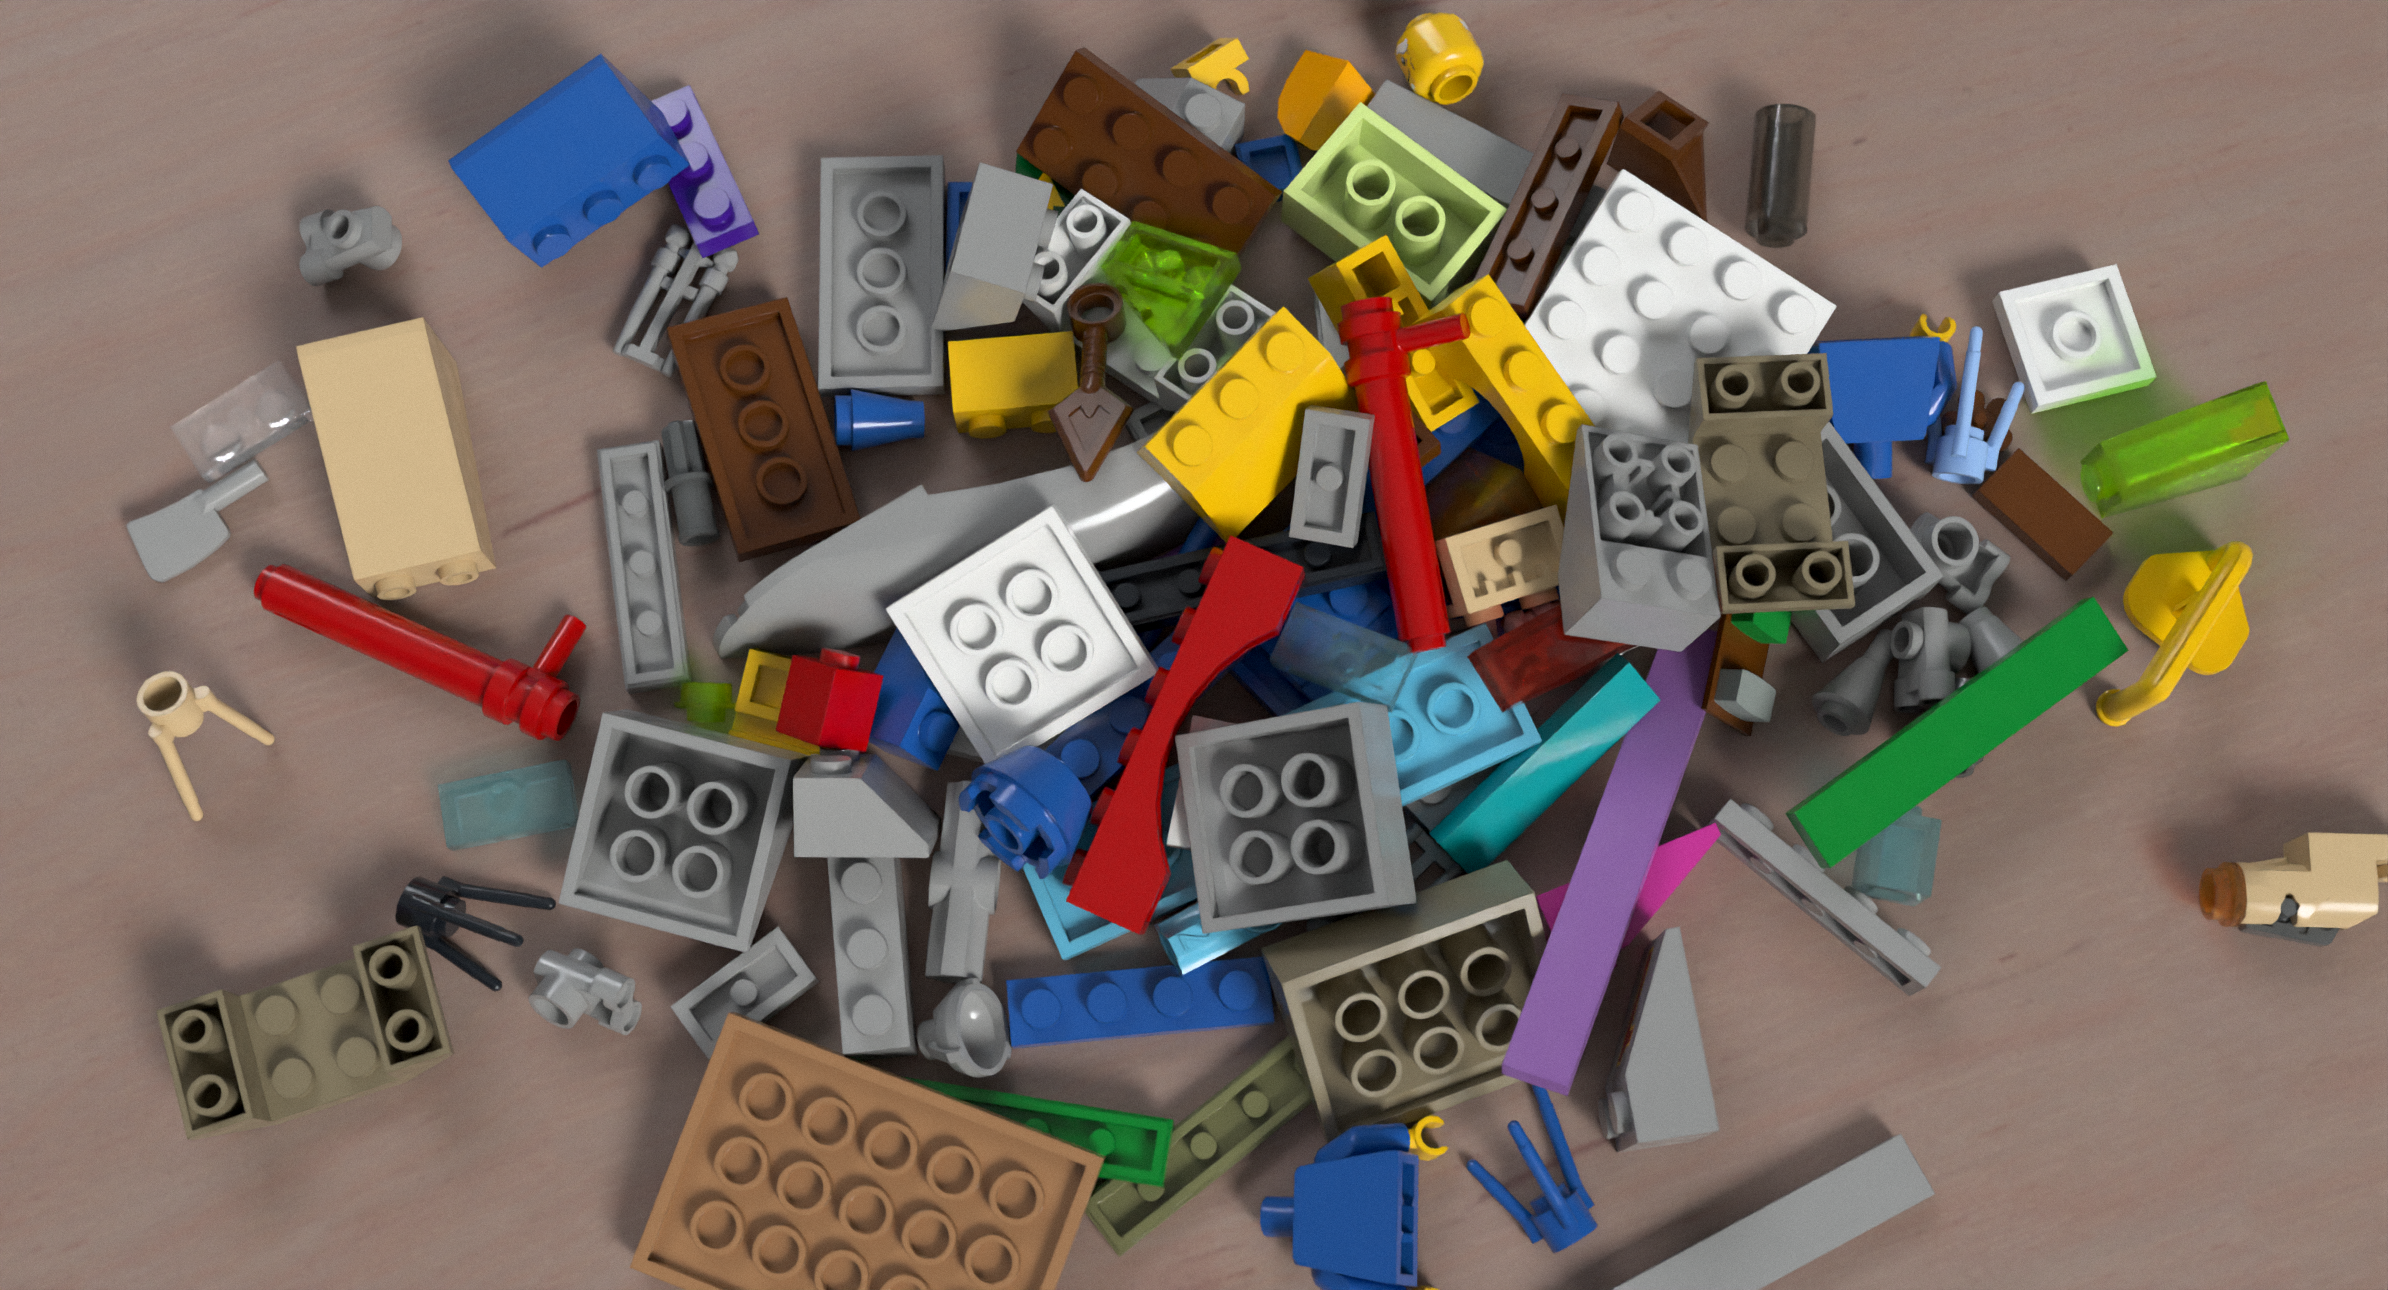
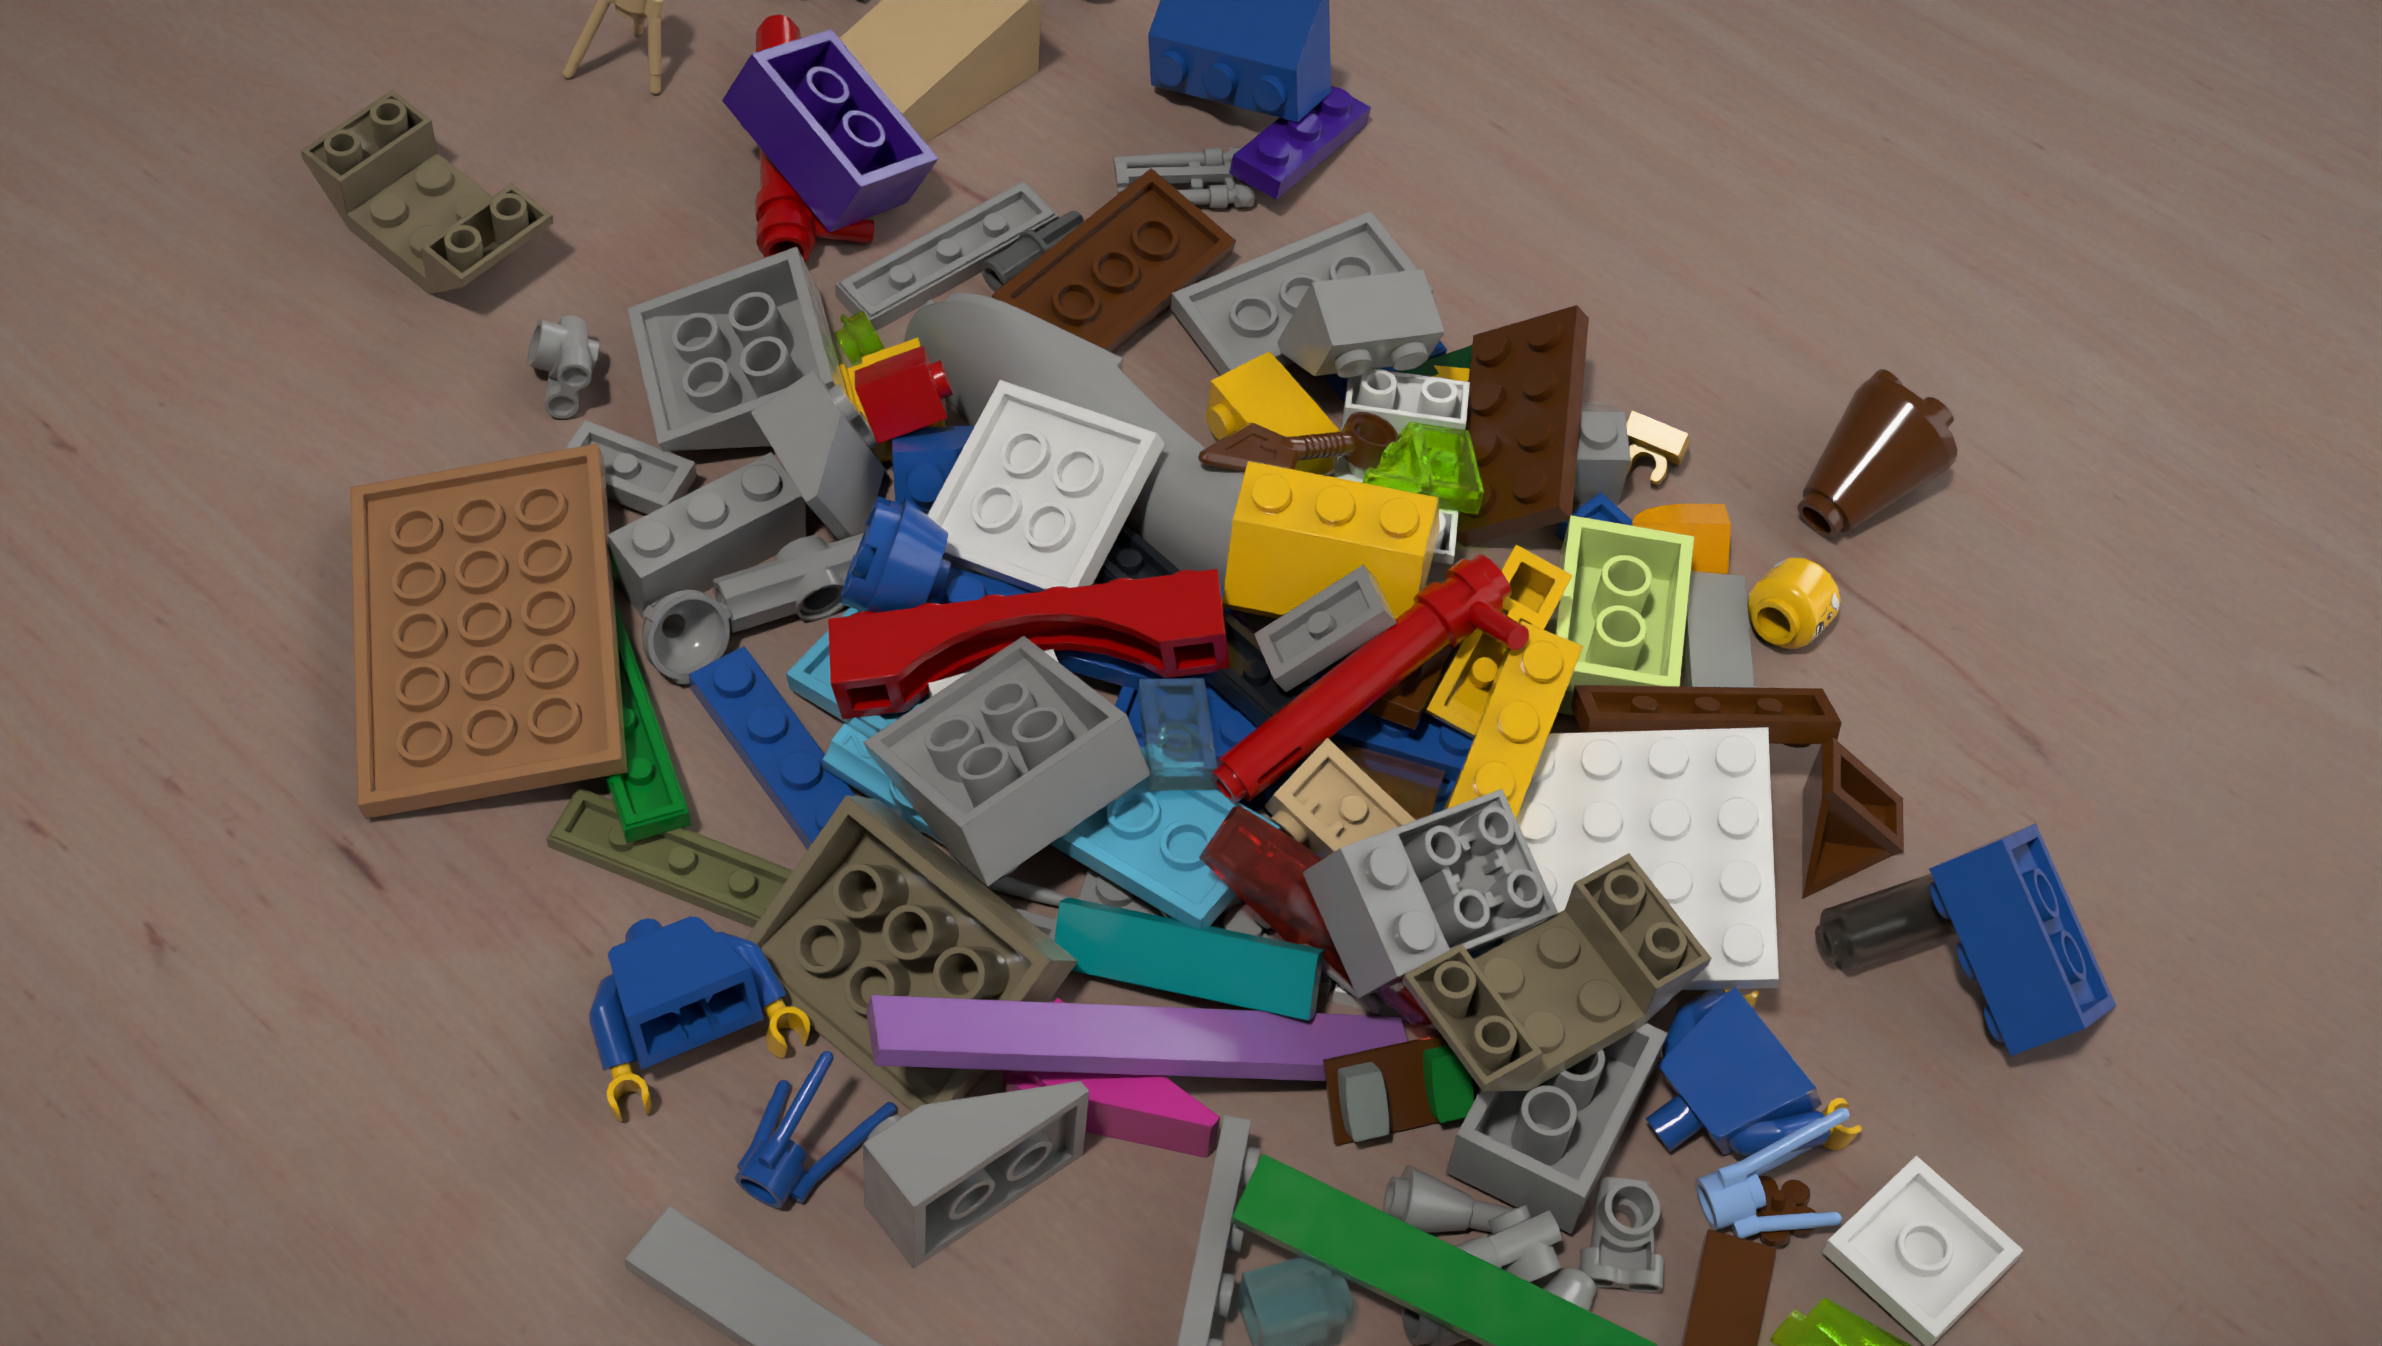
camera: 55 degrees right, 20 degrees down
(442, 912) = (576, 244): black plant -> none
(465, 606) = (829, 129): none -> dark purple brick
(508, 805) = (685, 245): clear light blue plate -> none
(876, 419) = (1172, 344): blue cone -> none
(1868, 91) = (2021, 940): none -> blue slope

